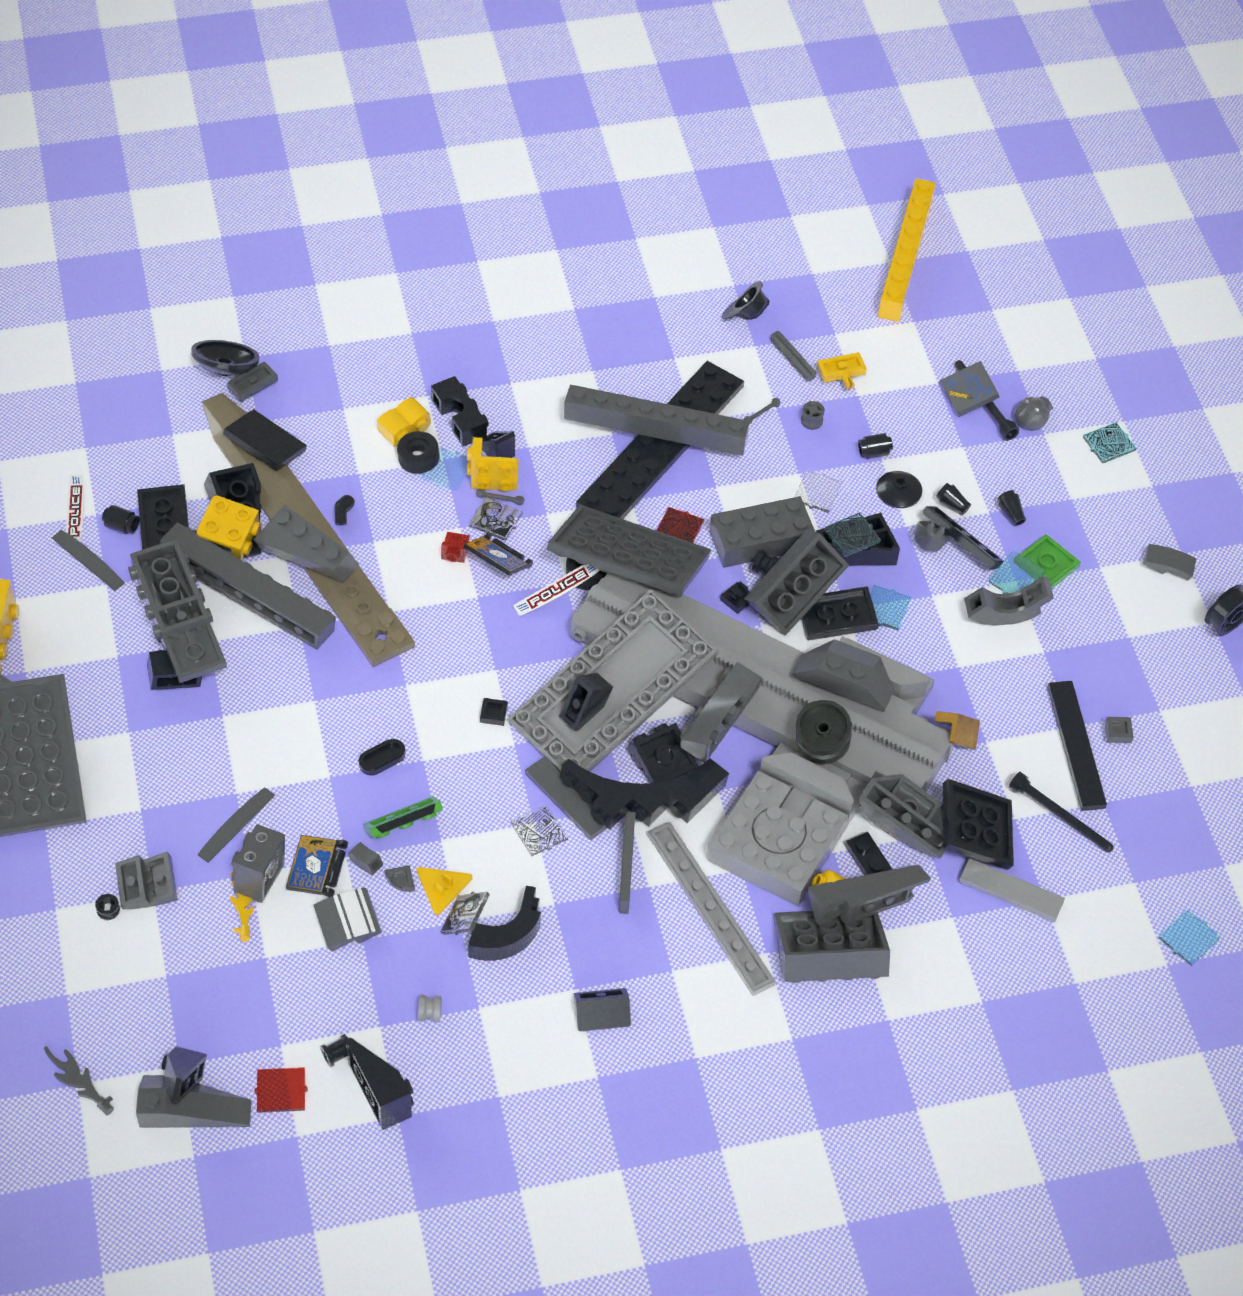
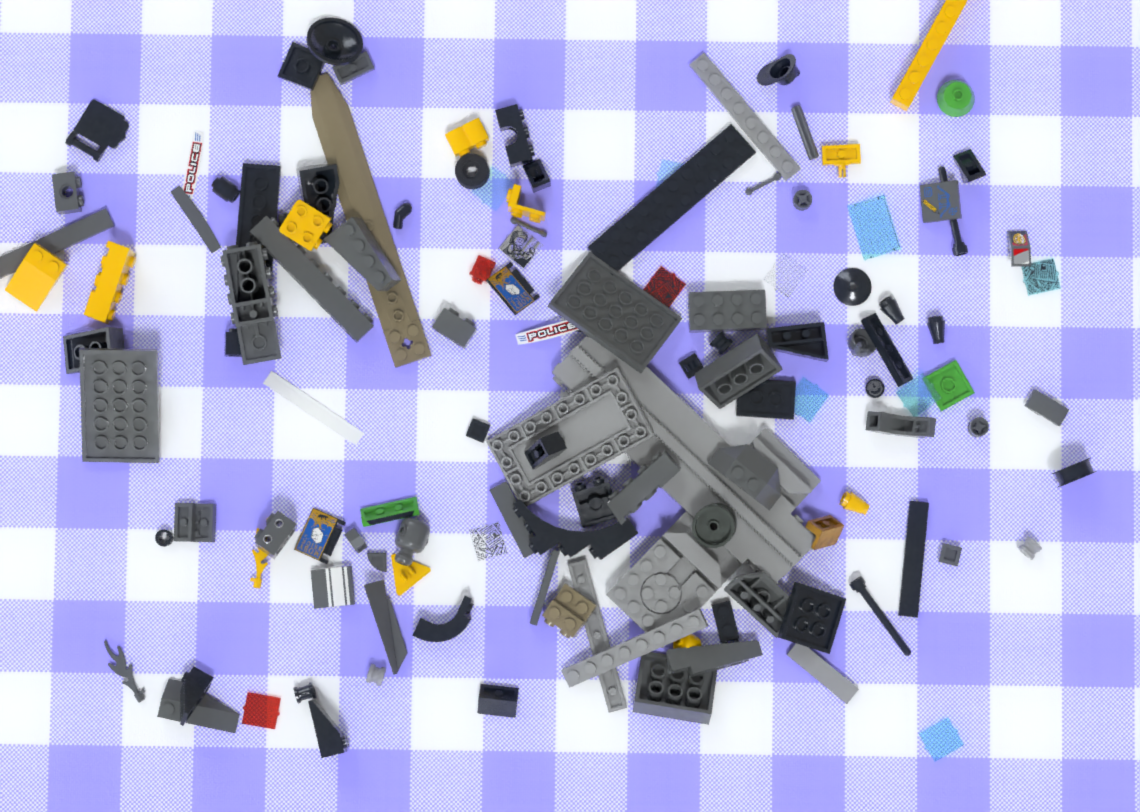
camera: 20 degrees right, 30 degrees up
(191, 390) = (301, 67): none -> black tile
(235, 824) = (267, 486): dark grey sticker -> none
(265, 439) = (352, 134): black tile -> none
(278, 728) = (313, 408): none -> white sticker
(382, 757) = (385, 452): black tile -> none
(429, 946) = (387, 624): none -> dark grey wedge
(437, 607) = (454, 327): none -> dark grey brick
(439, 840) = (411, 539): none -> dark grey piece
(465, 913) = (416, 604): piece -> none
(656, 419) = (669, 187): dark grey brick -> none
(666, 882) = (569, 611): none -> dark tan plate
(721, 354) = (744, 117): none -> light grey plate
(764, 898) = (634, 647): none -> light grey plate
(852, 534) = (794, 340): clear light blue piece -> none
(875, 445) = (844, 243): black brick -> none
(906, 427) = (874, 227): none -> clear light blue piece
(949, 295) = (955, 98): none -> bright green cone
(962, 580) = (874, 388): none -> tile
(981, 697) = (853, 503): none -> yellow cone
(992, 352) = (969, 166): none -> black slope
(1033, 412) = (986, 236): dark grey piece -> none
(1076, 415) = (1019, 248): none -> slope
(1099, 593) = (978, 427): none -> dark grey wheel
(1211, 703) = (1029, 548): none -> light grey wheel

